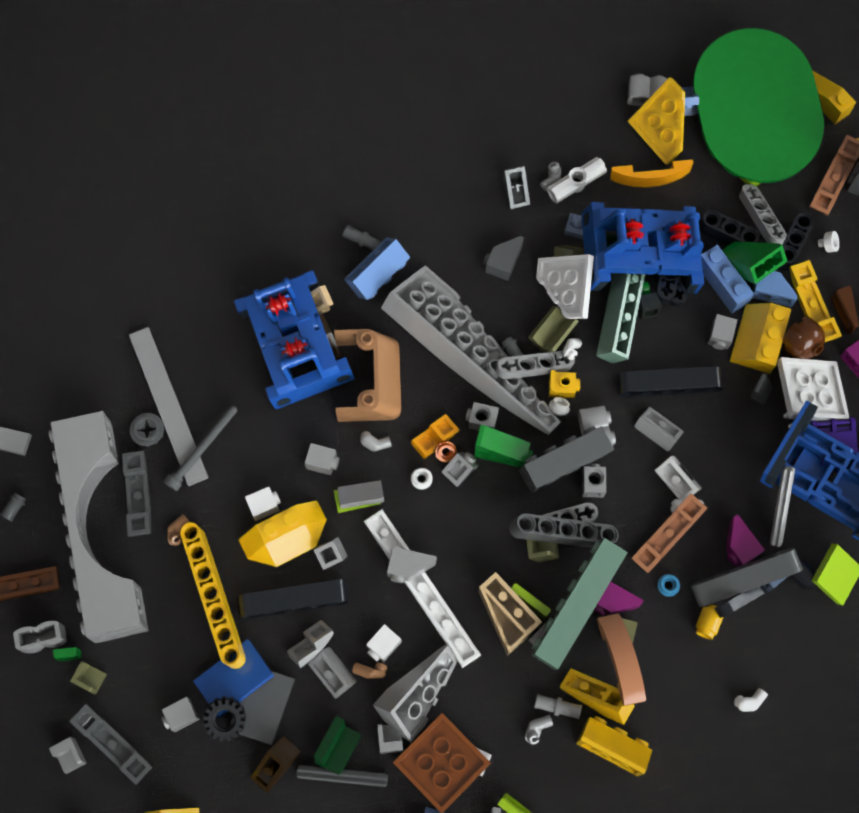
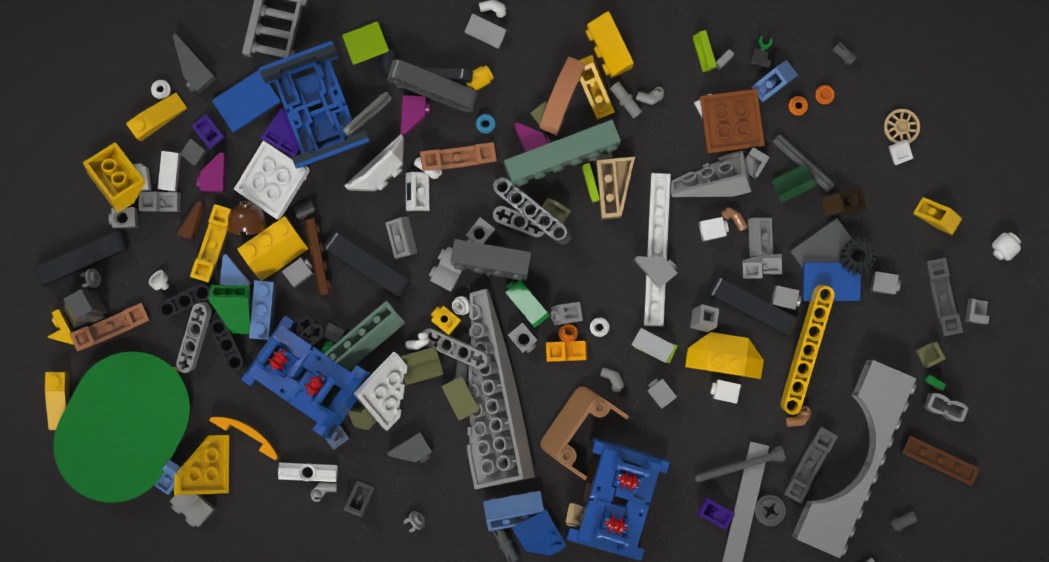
camera: 145 degrees left, 15 degrees up
(195, 389) = (715, 513): none -> dark purple slope
(267, 630) = (785, 297): none -> light grey brick
(338, 265) = (540, 535): none -> blue slope
(455, 205) = (416, 520): none -> light grey plate
(497, 325) = (460, 398): none -> olive panel
(723, 361) = (316, 249): none -> reddish brown plate
(727, 473) = (380, 169): none -> white wedge
(739, 672) = (485, 31): none -> light grey slope

